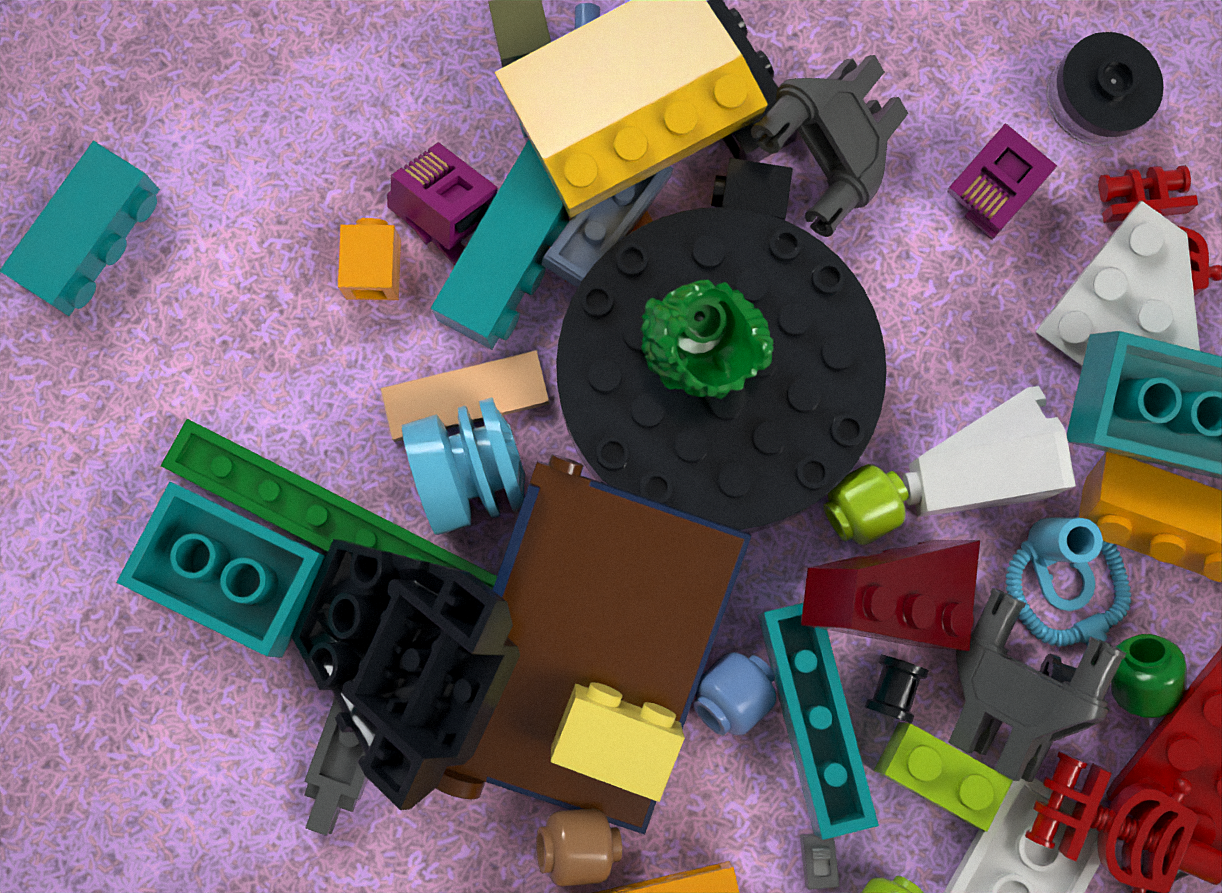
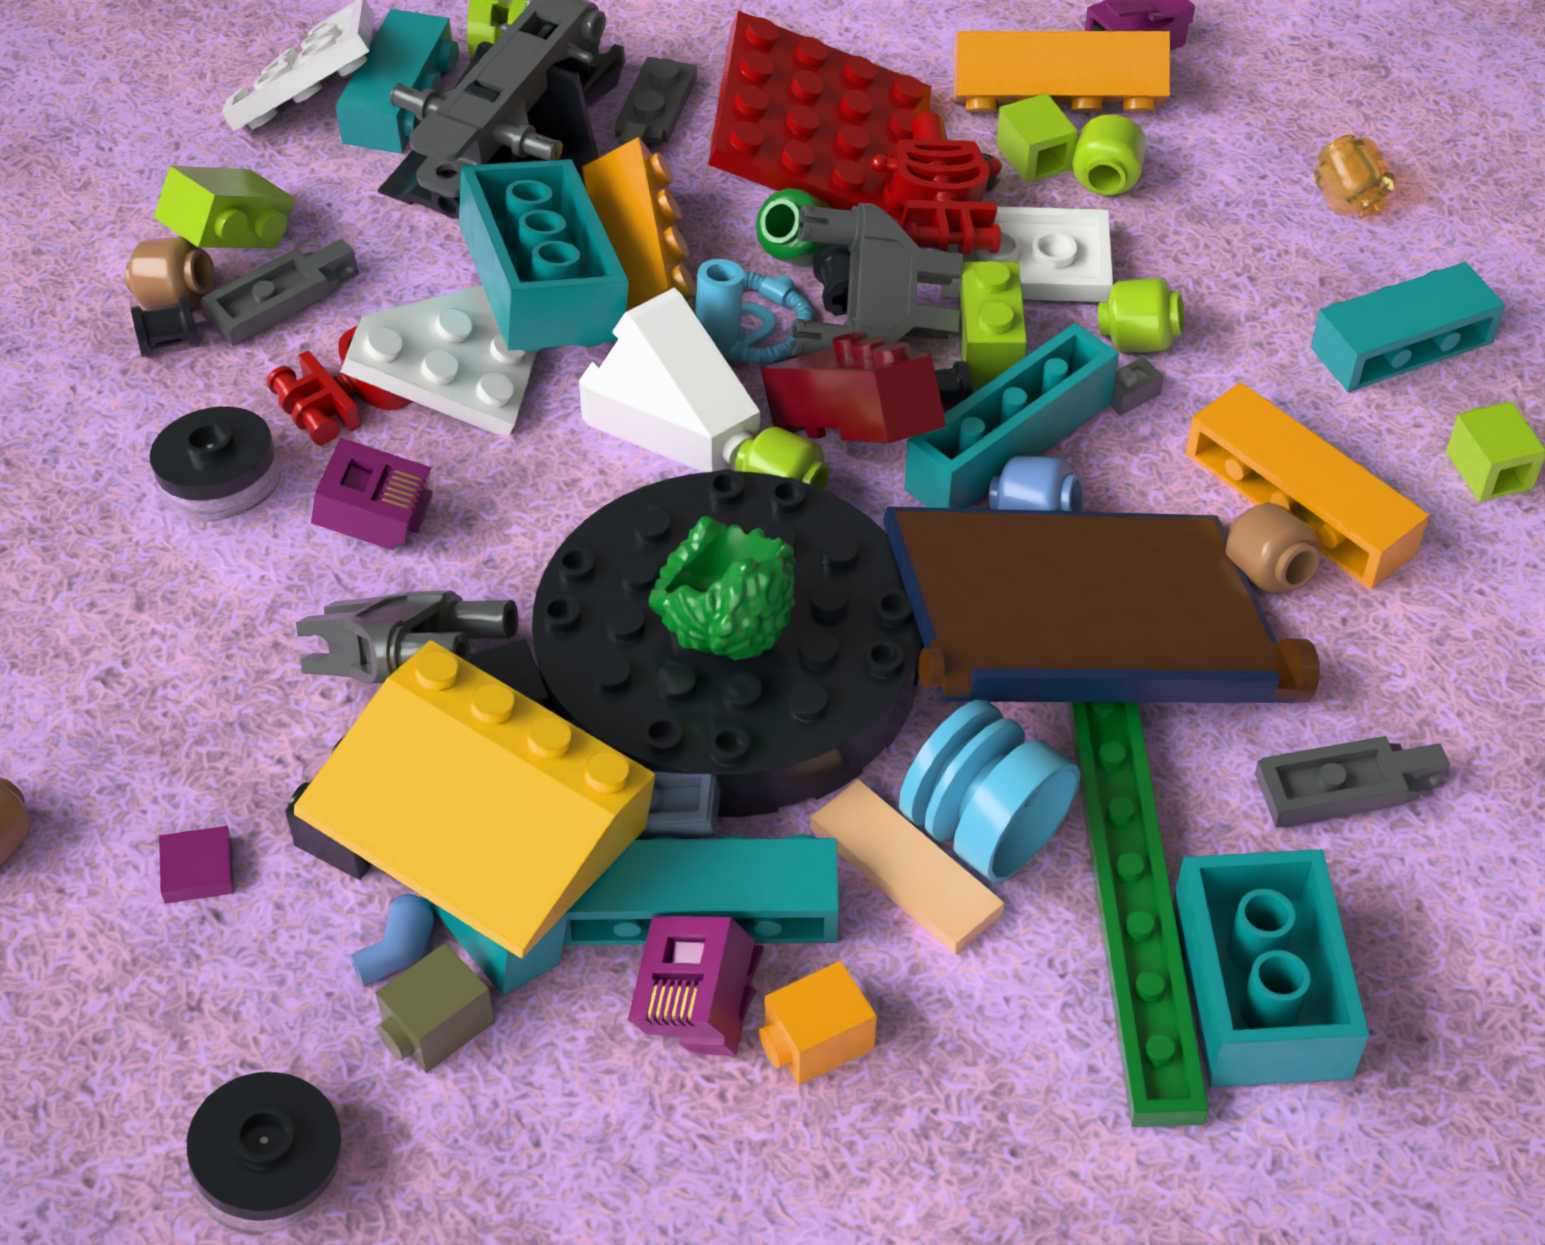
camera: 120 degrees left, 30 degrees down
(410, 659) = (1226, 719): black wedge -> none
(618, 740) = (1158, 535): light yellow brick -> none

